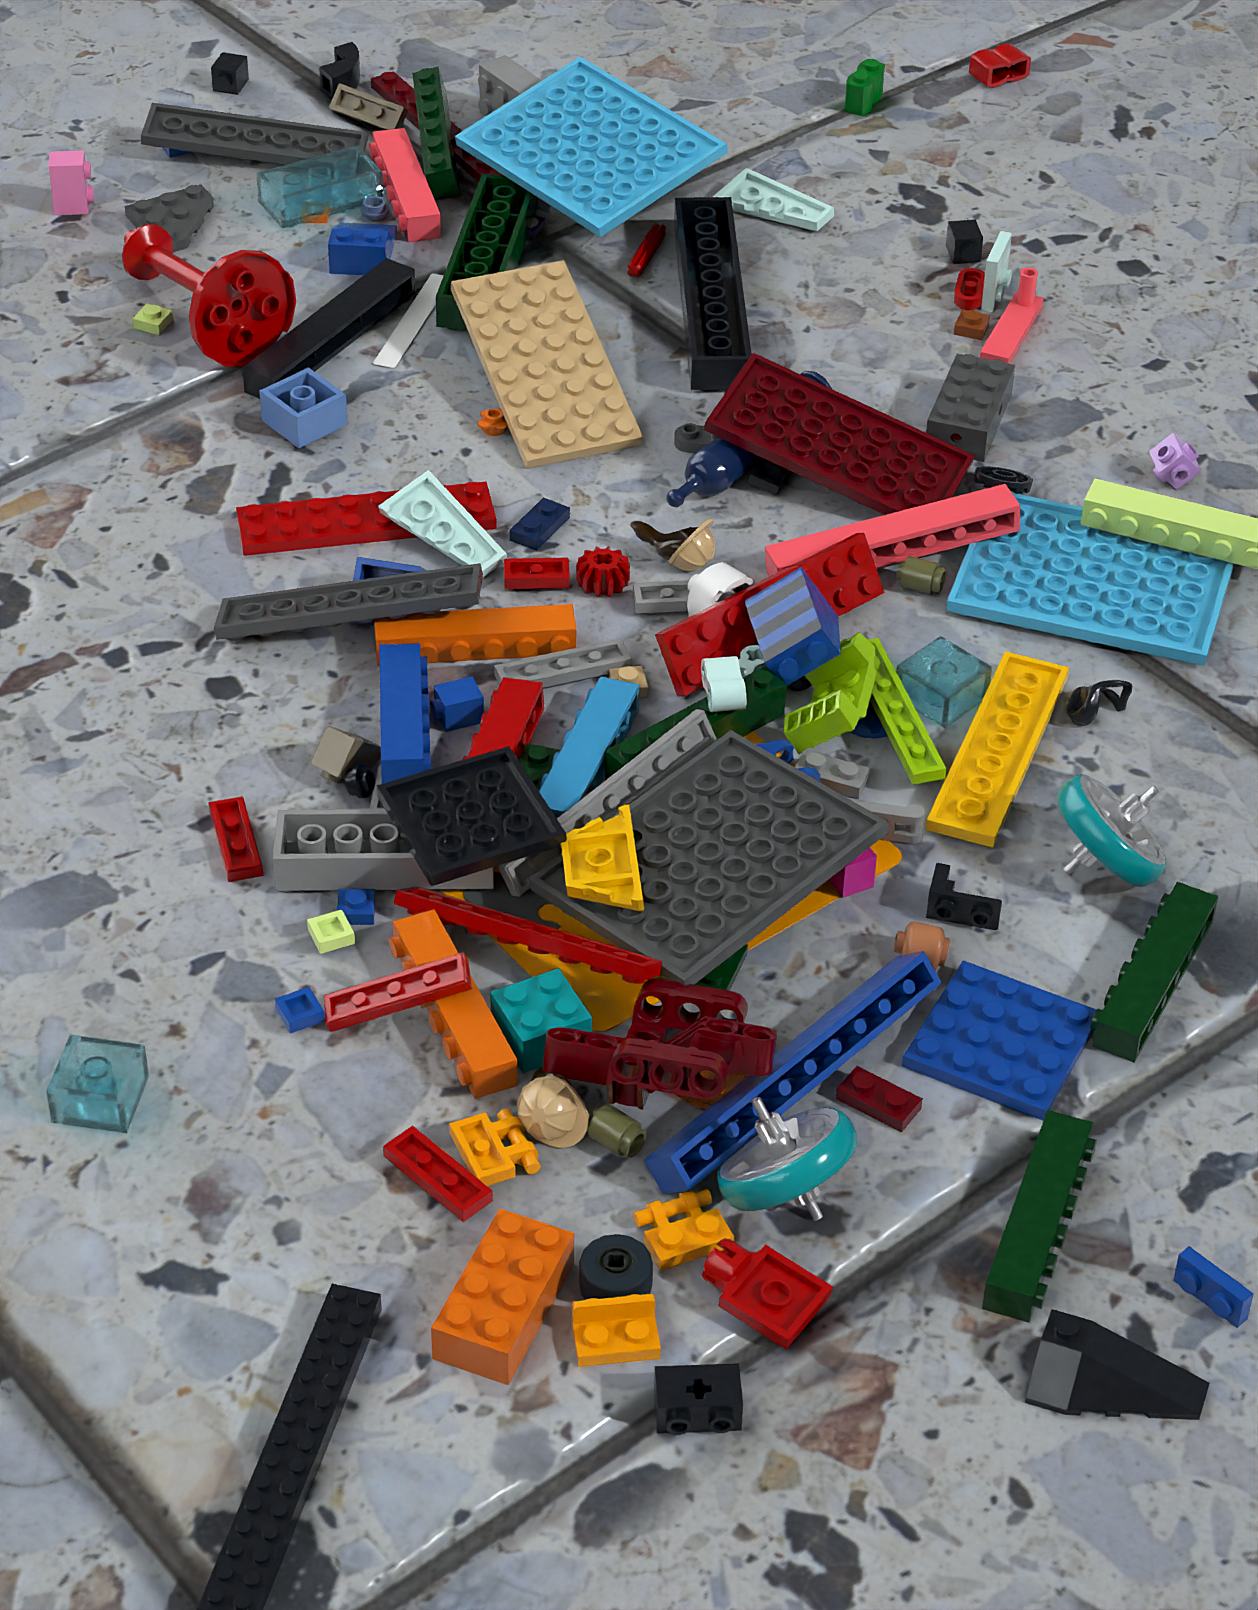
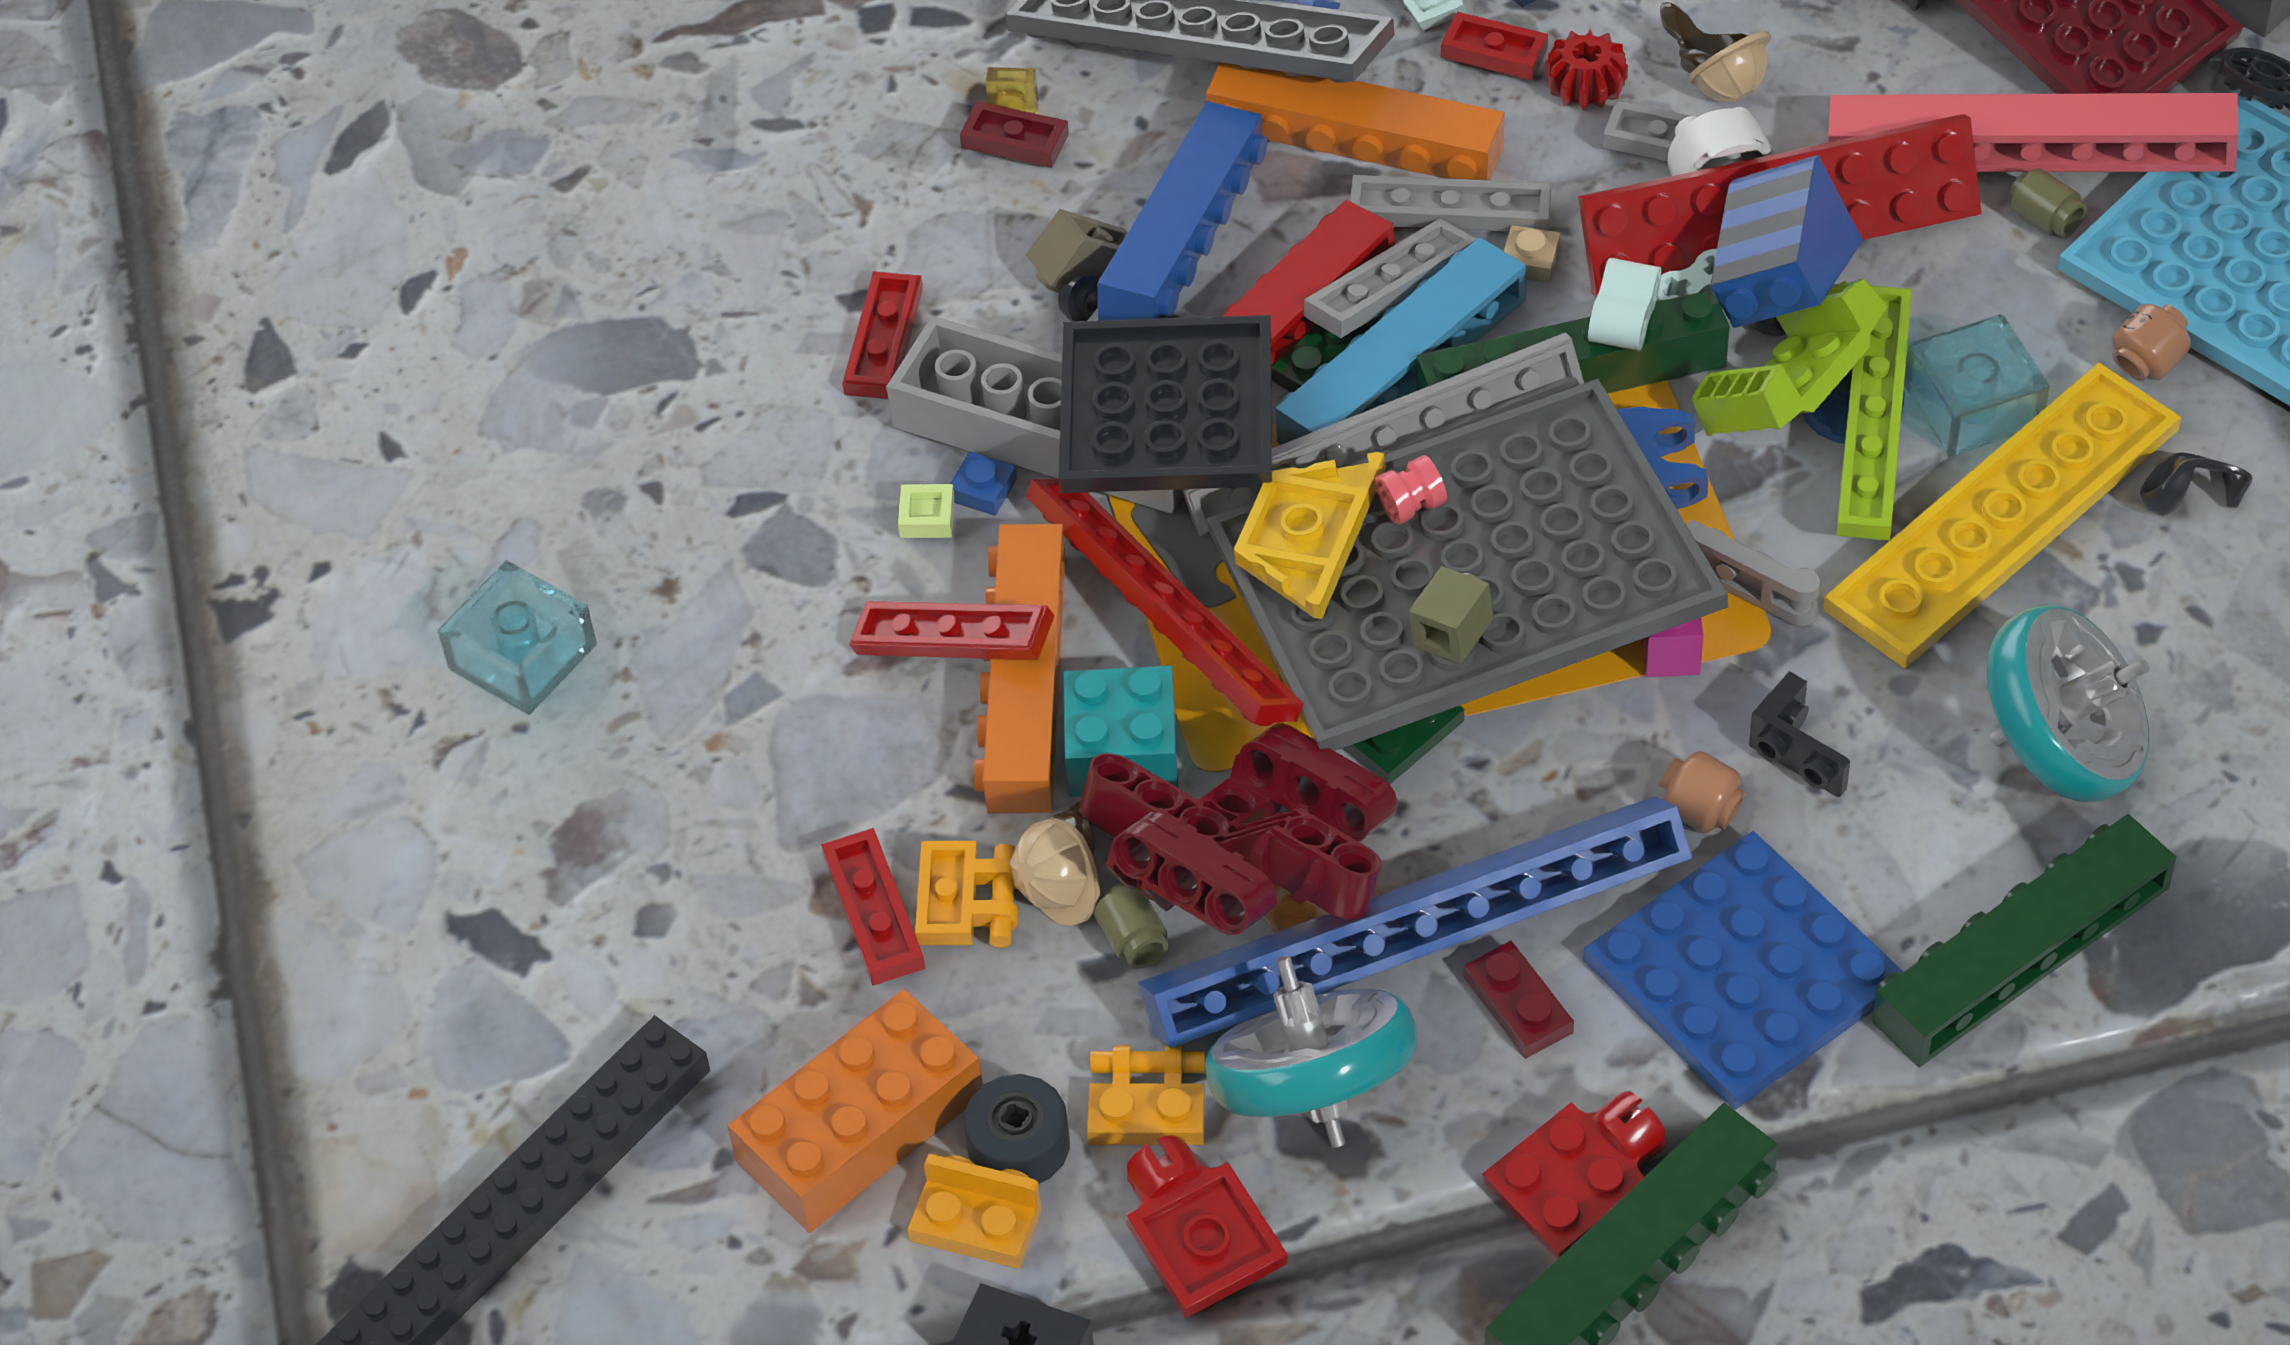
camera: 30 degrees right, 10 degrees up
(241, 674) = (1013, 88): none -> clear yellow plate
(256, 698) = (1014, 134): none -> dark red plate
(299, 1010) = (826, 612): blue plate -> none
(457, 704) = (1271, 219): blue brick -> none
(554, 716) = (1385, 279): none -> light grey plate
(662, 816) = (1407, 491): none -> coral wheel
(730, 880) = (1451, 614): none -> olive brick
(837, 774) = (1740, 482): light grey plate -> none
(977, 1181) = (1576, 1168): none -> red plate
(1028, 631) = (2151, 342): none -> nougat head

